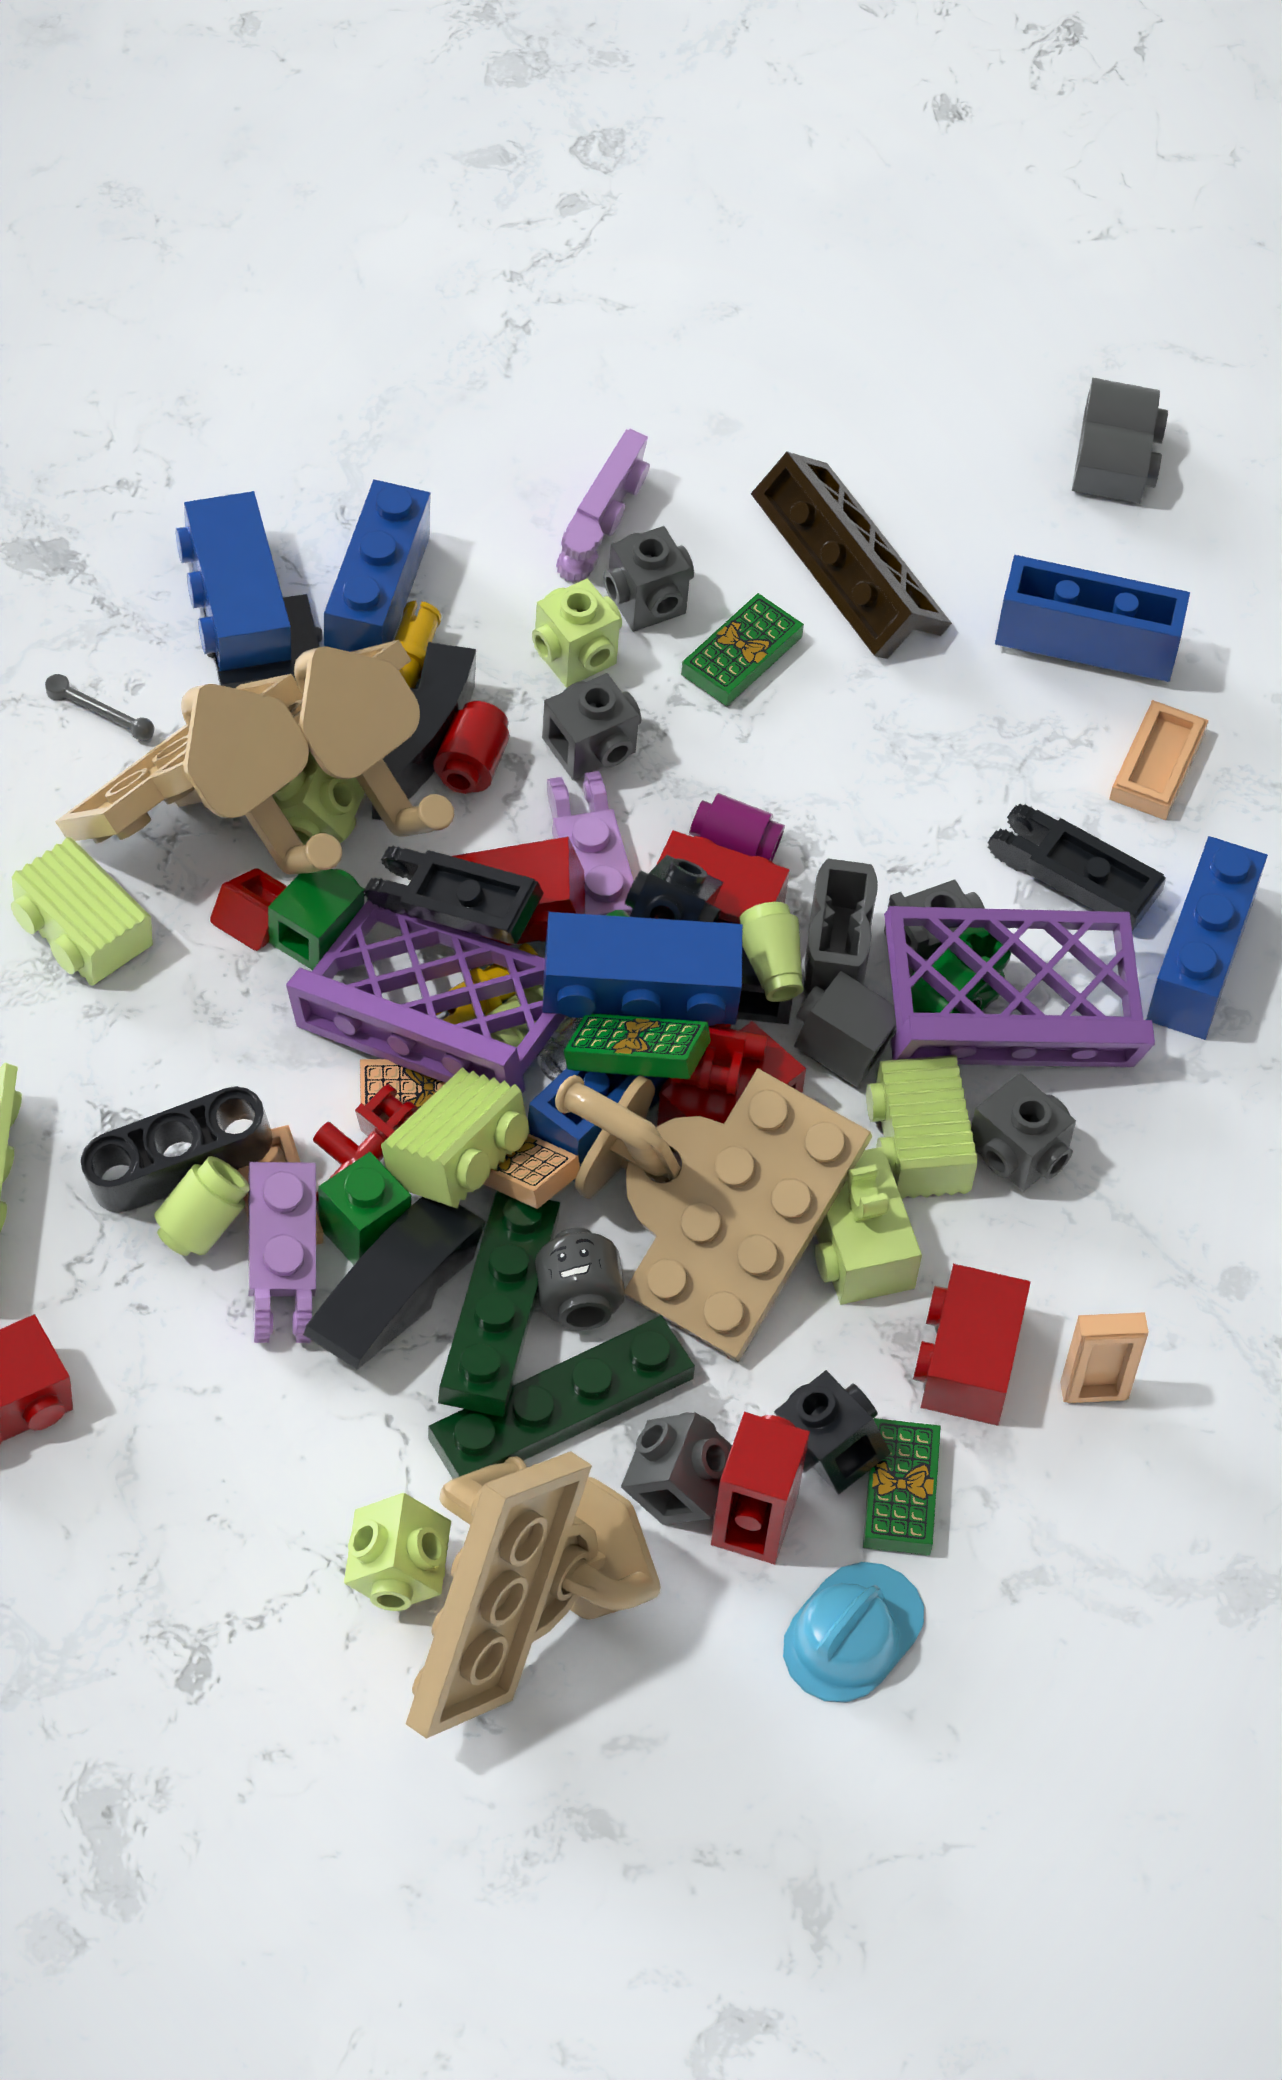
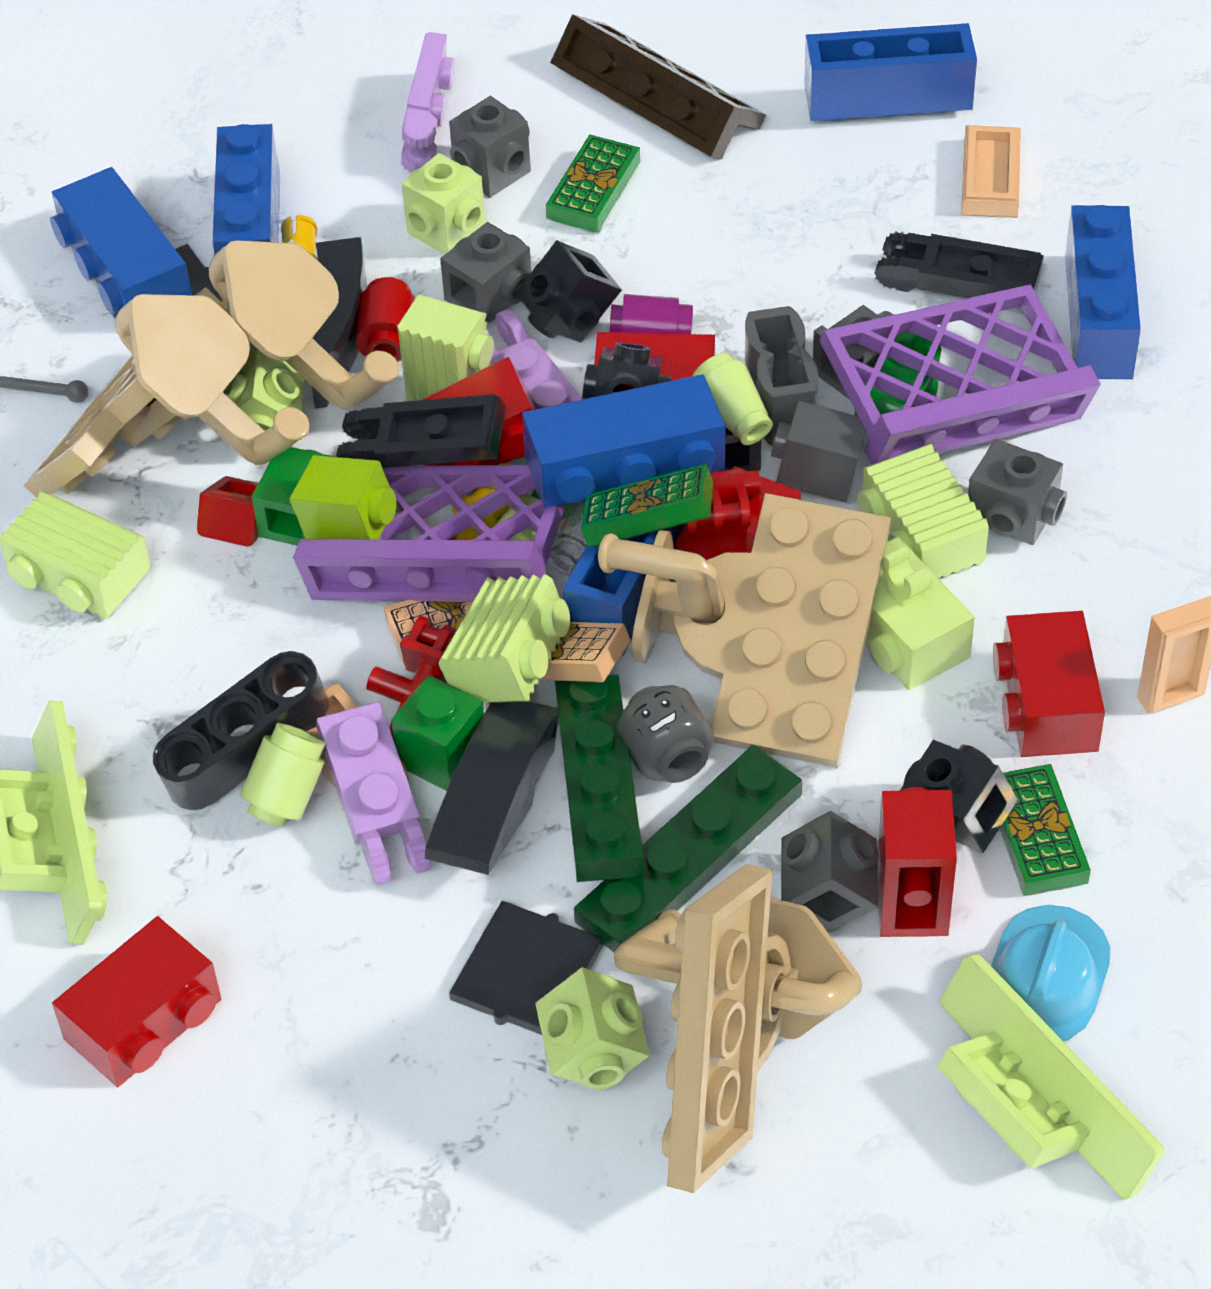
camera: 10 degrees left, 5 degrees down
(353, 941) = (343, 499): none -> lime brick
(363, 1462) = (520, 963): none -> black piece
(508, 803) = (441, 345): none -> yellowish green brick
(663, 773) = (567, 292): none -> black brick
(786, 1737) = (1036, 1086): none -> yellowish green bracket

